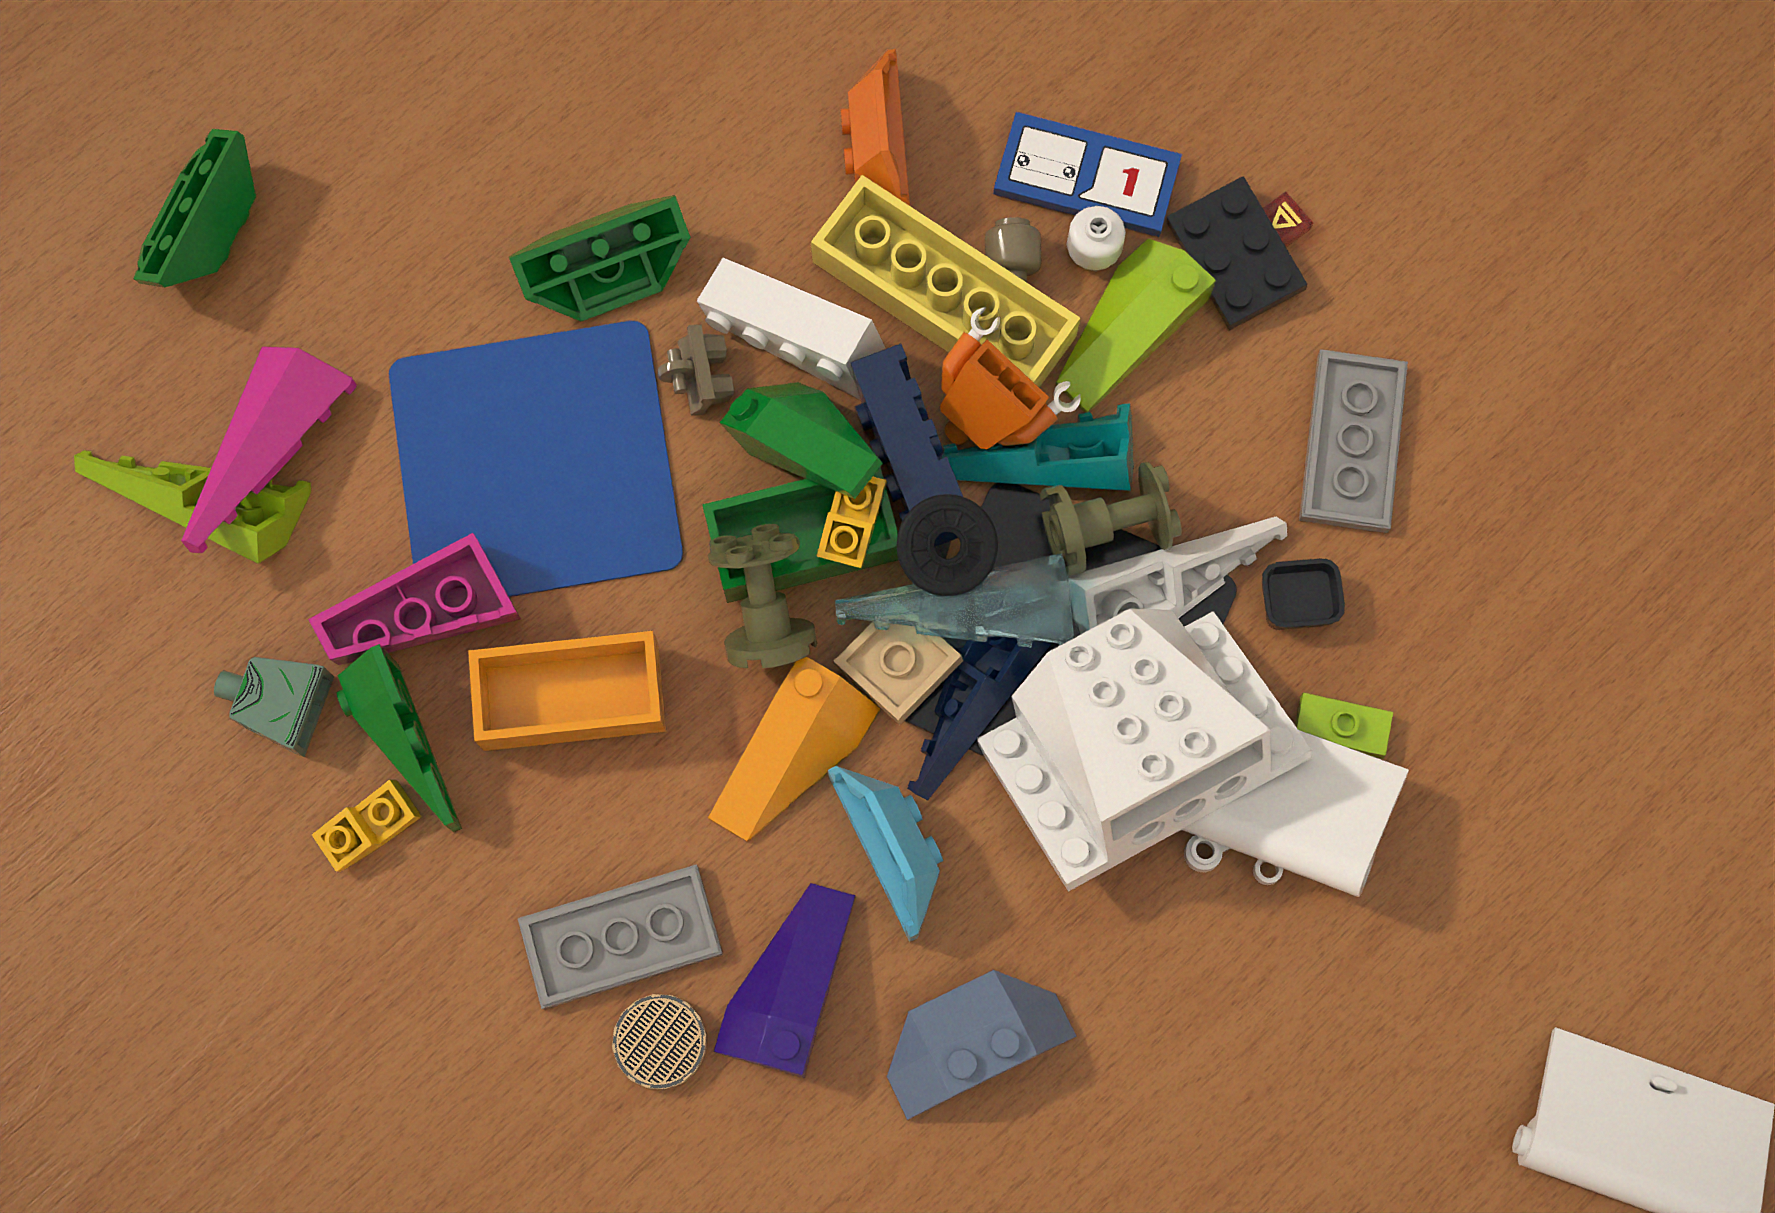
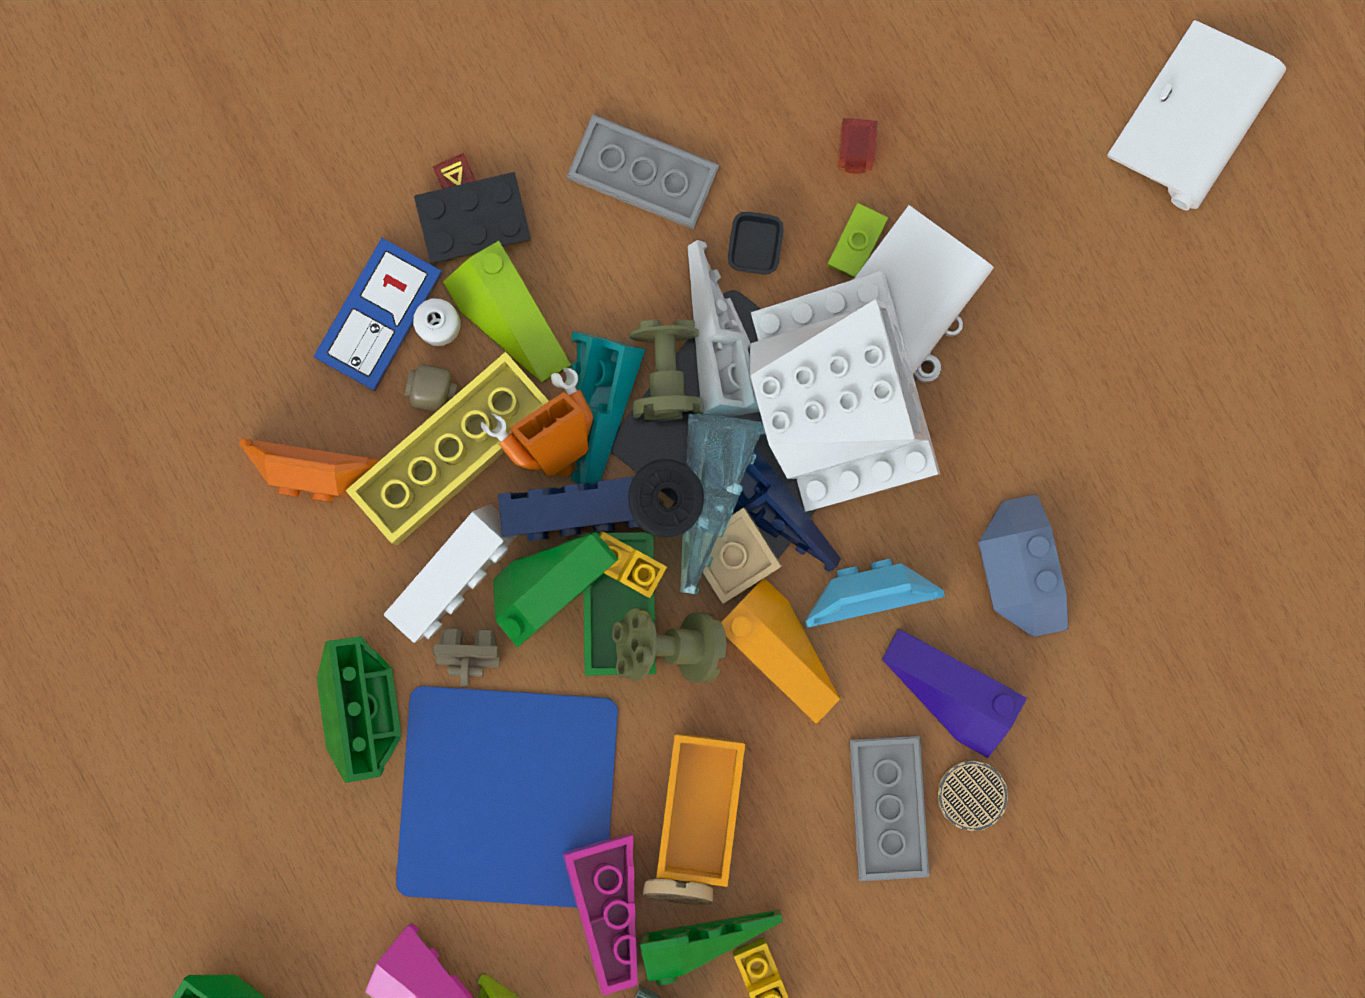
camera: 75 degrees left, 10 degrees up
(456, 687) = (671, 891): none -> tan tile
(1467, 692) = (857, 145): none -> clear red brick

